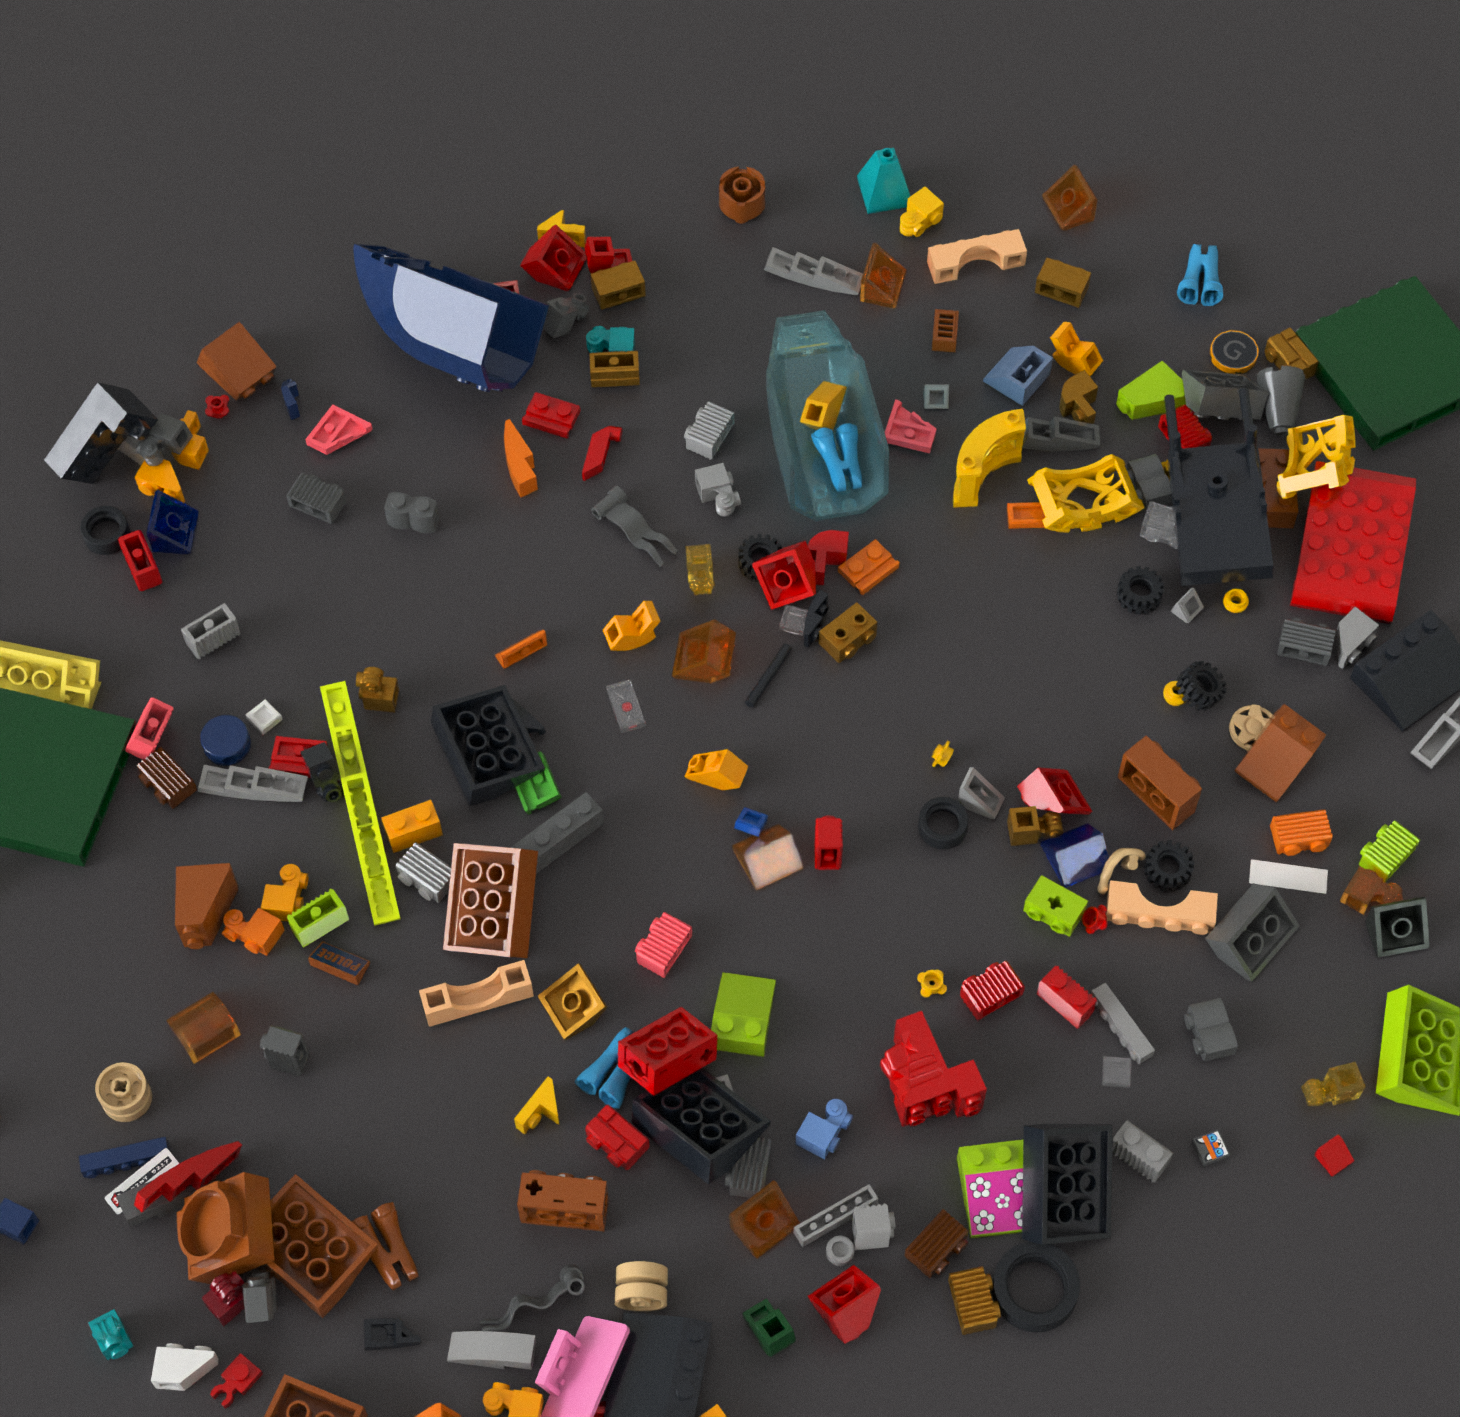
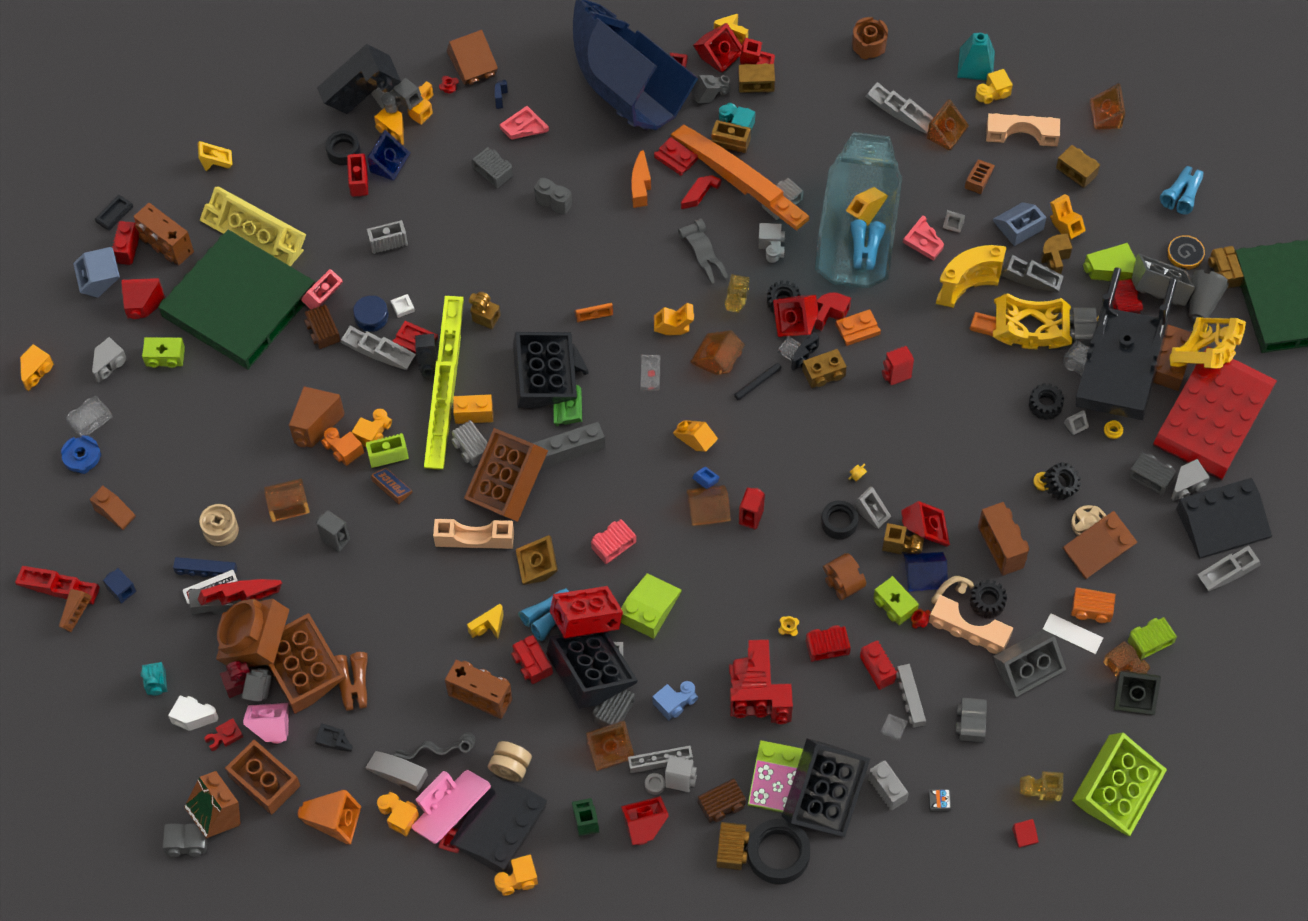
camera: 20 degrees right, 0 degrees up
(291, 1341) = (268, 721): none -> bright pink slope
(647, 415) = (741, 176): none -> orange slope
(942, 600) = (898, 365): none -> red brick
(980, 895) = (844, 576): none -> dark orange brick

